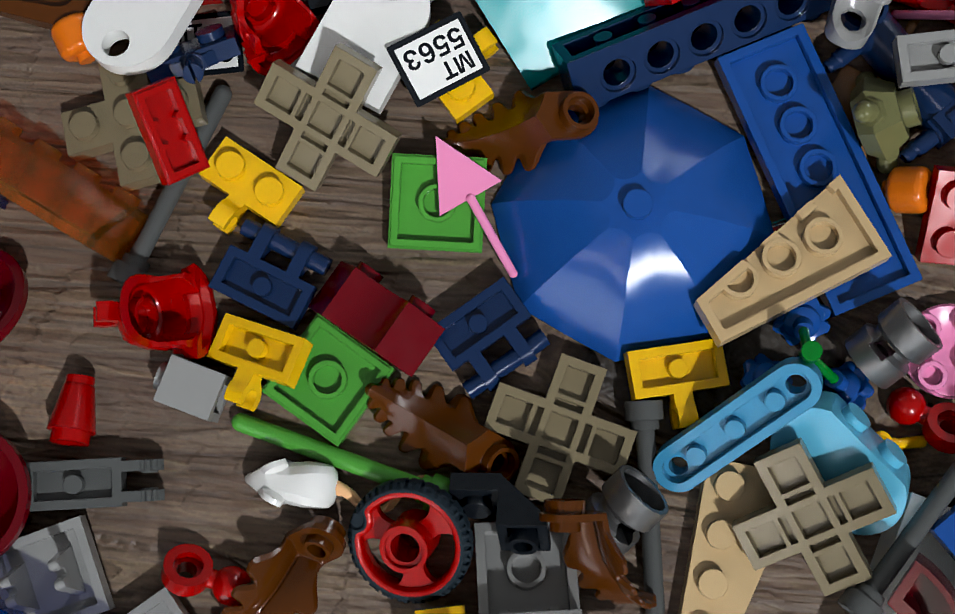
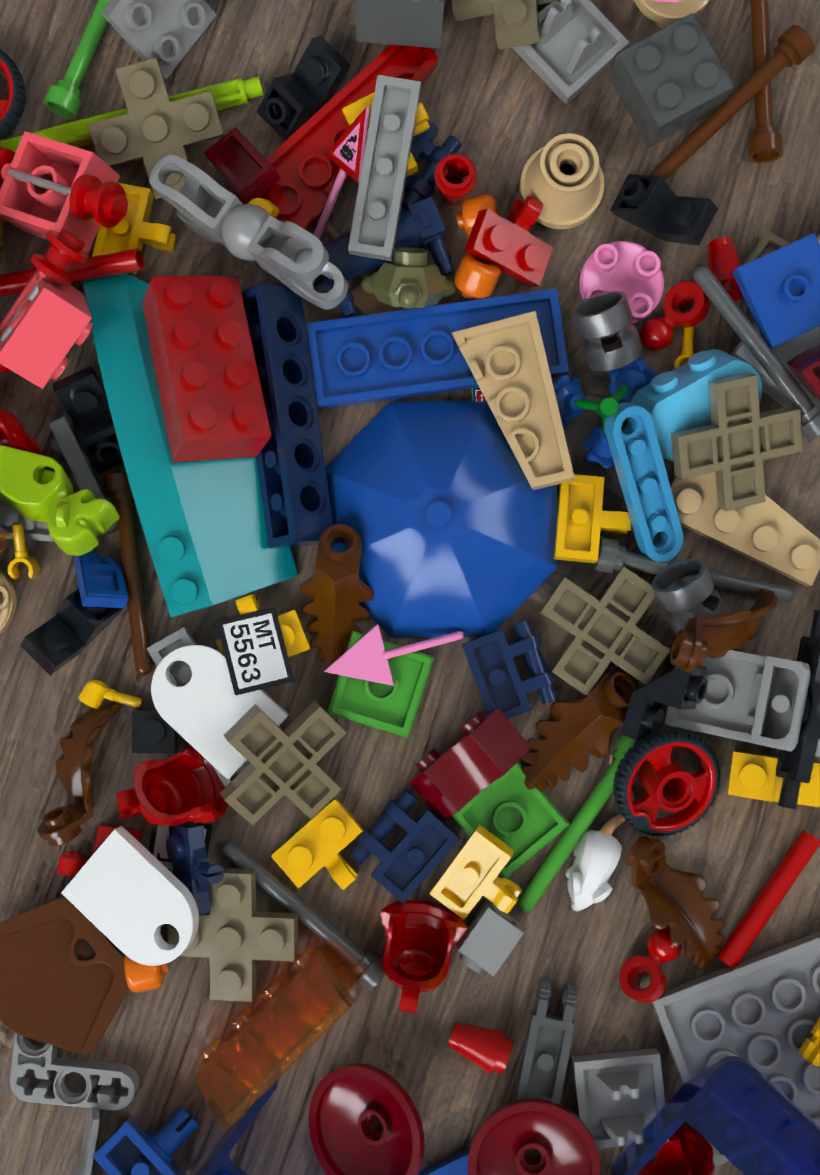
camera: 80 degrees left, 5 degrees up
(167, 130) = (259, 908): red plate -> none

